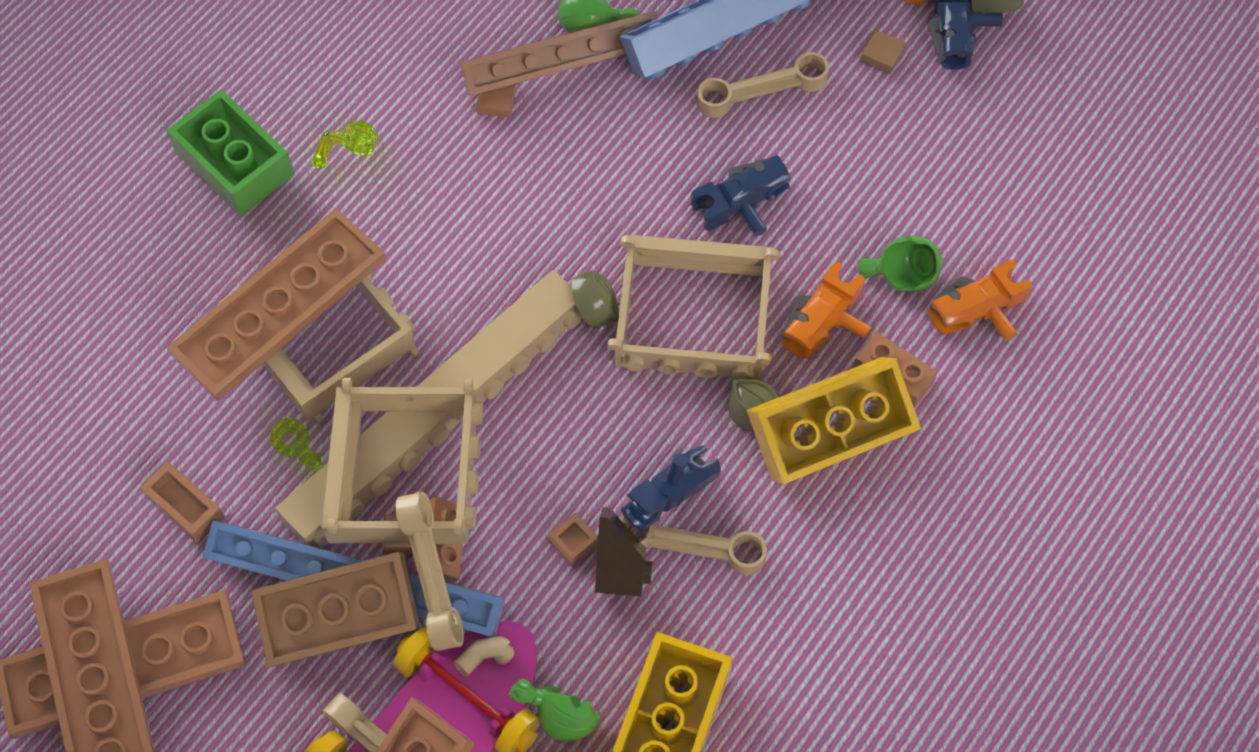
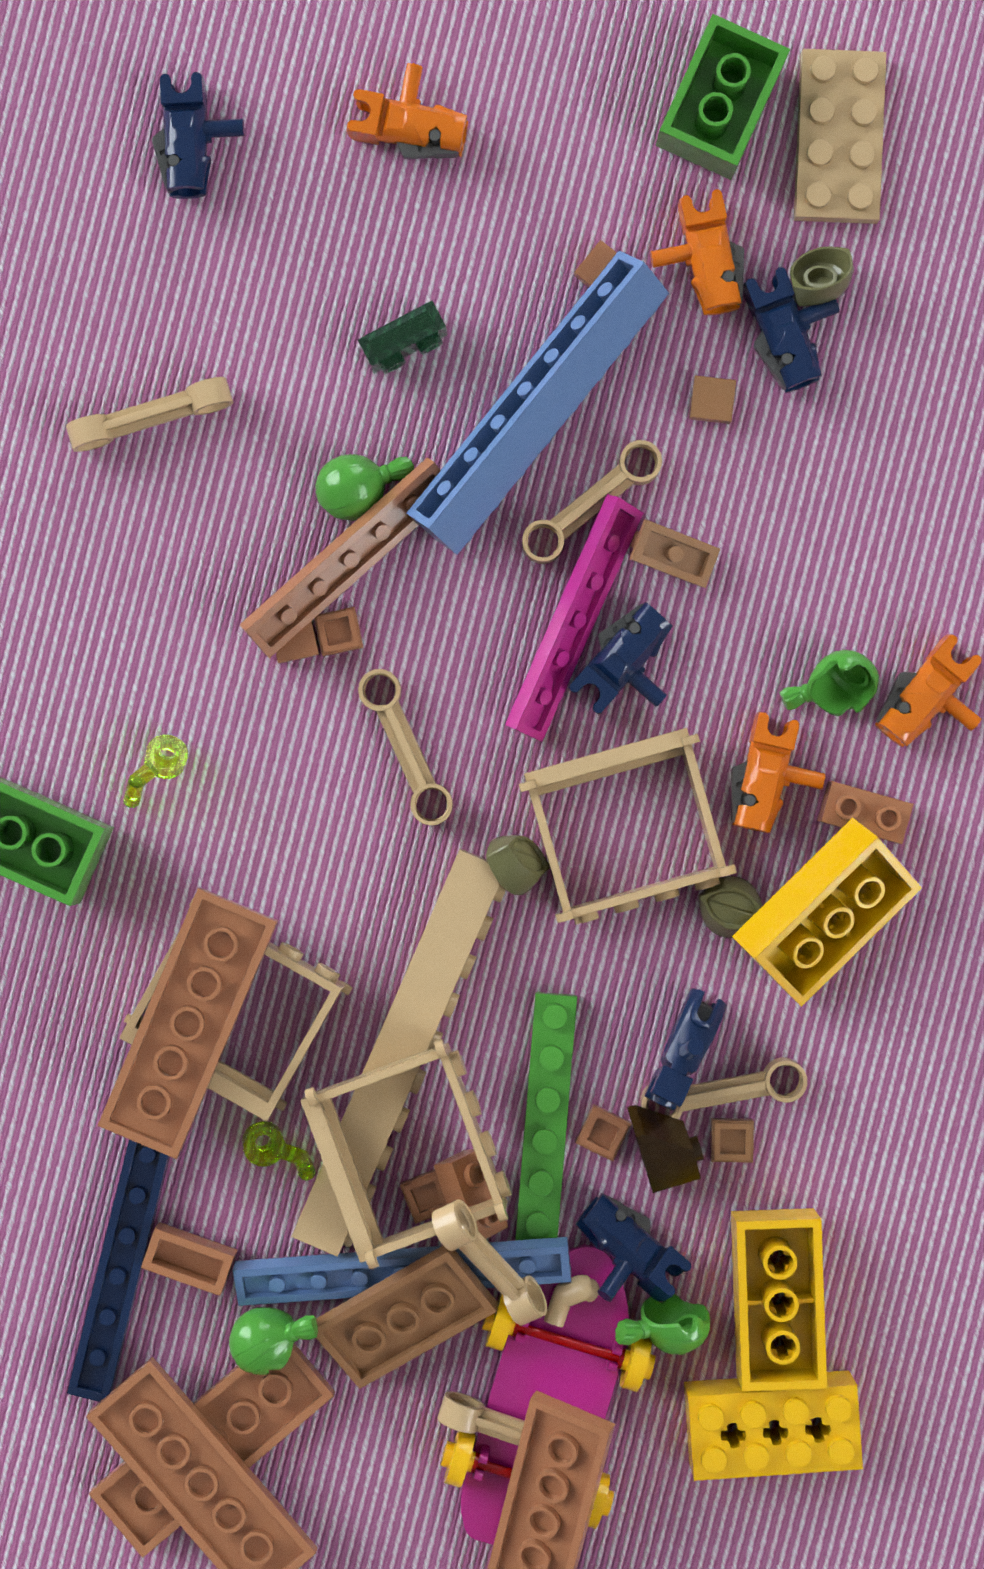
camera: 25 degrees left, 25 degrees up
(121, 490) = (118, 1272): none -> dark blue plate
(211, 583) = (265, 1338): none -> bright green hair
(531, 105) = (338, 631): none -> nougat tile
(534, 504) = (546, 1116): none -> bright green plate
(545, 197) = (405, 746): none -> tan piece
(556, 635) = (628, 1240): none -> dark blue piece
(681, 587) = (732, 1140): none -> medium nougat tile
(714, 153) = (574, 617): none -> dark pink plate
(812, 133) = (674, 553): none -> medium nougat plate

